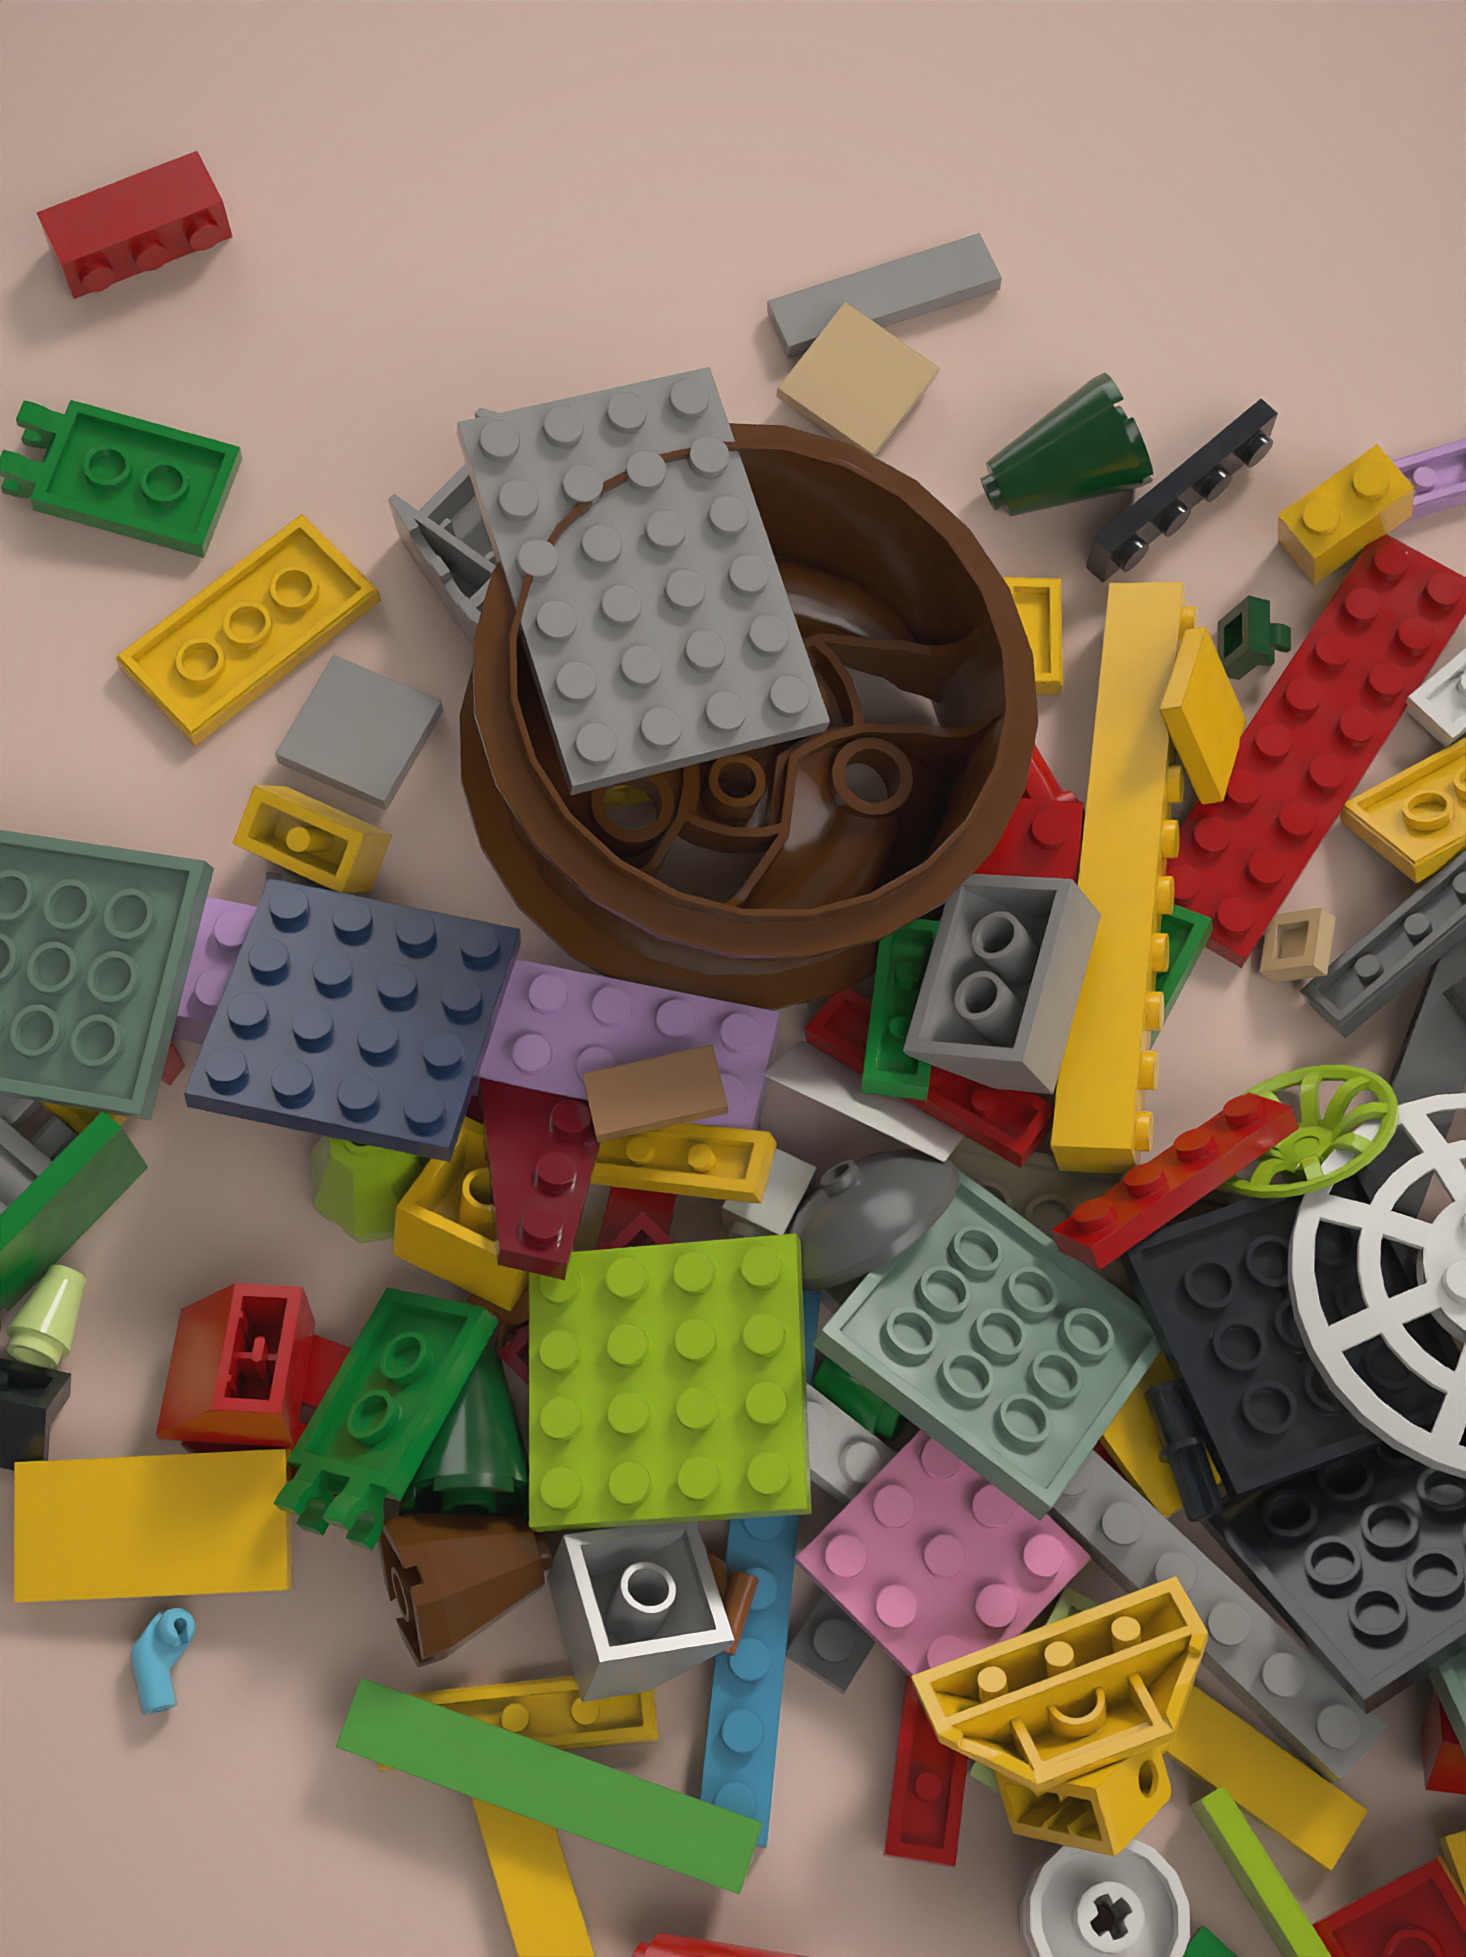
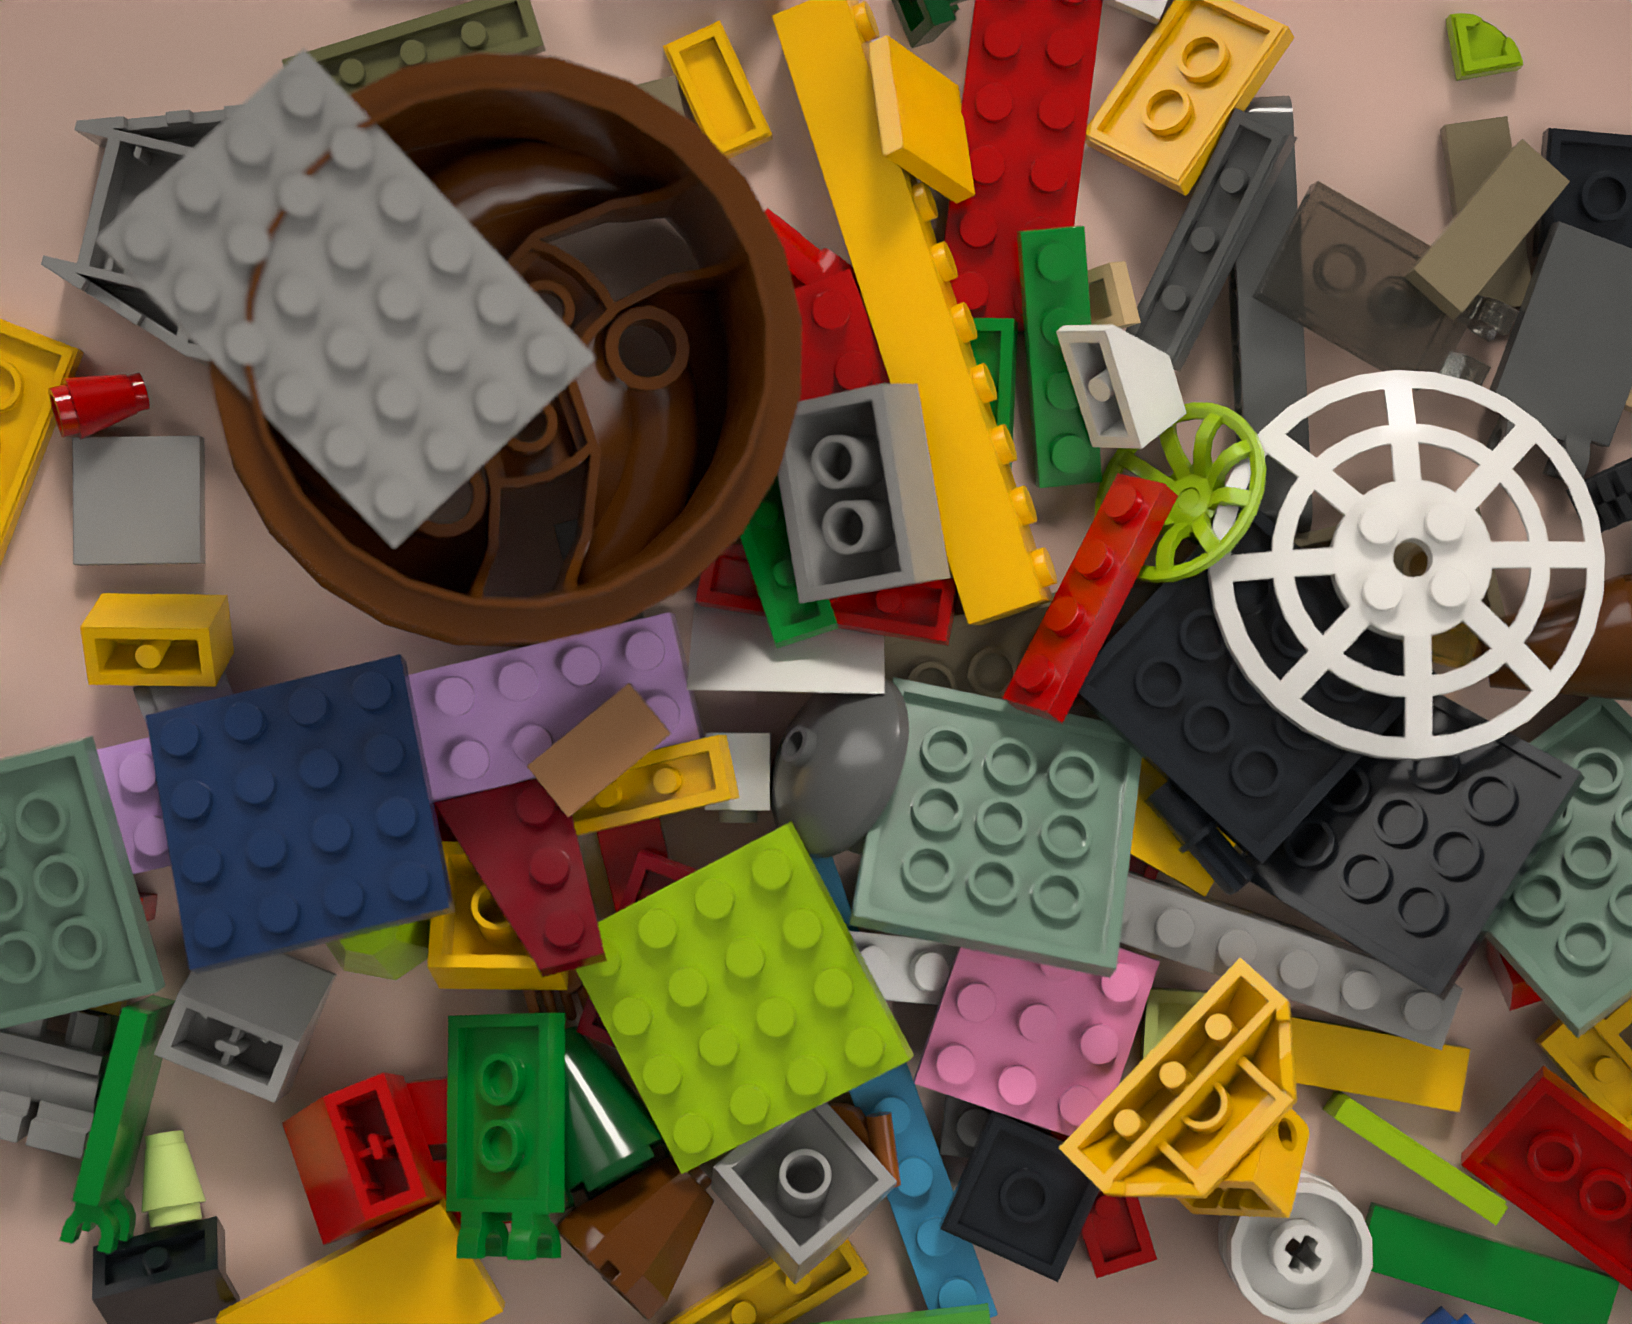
camera: 25 degrees left, 20 degrees up
(204, 1197) = (247, 1022): none -> light grey slope
(369, 634) = (96, 402): none -> red cone
(850, 1727) = (1020, 1197): none -> black tile
(1238, 973) = (1054, 296): none -> green plate
(1287, 1008) = (1120, 385): none -> white slope

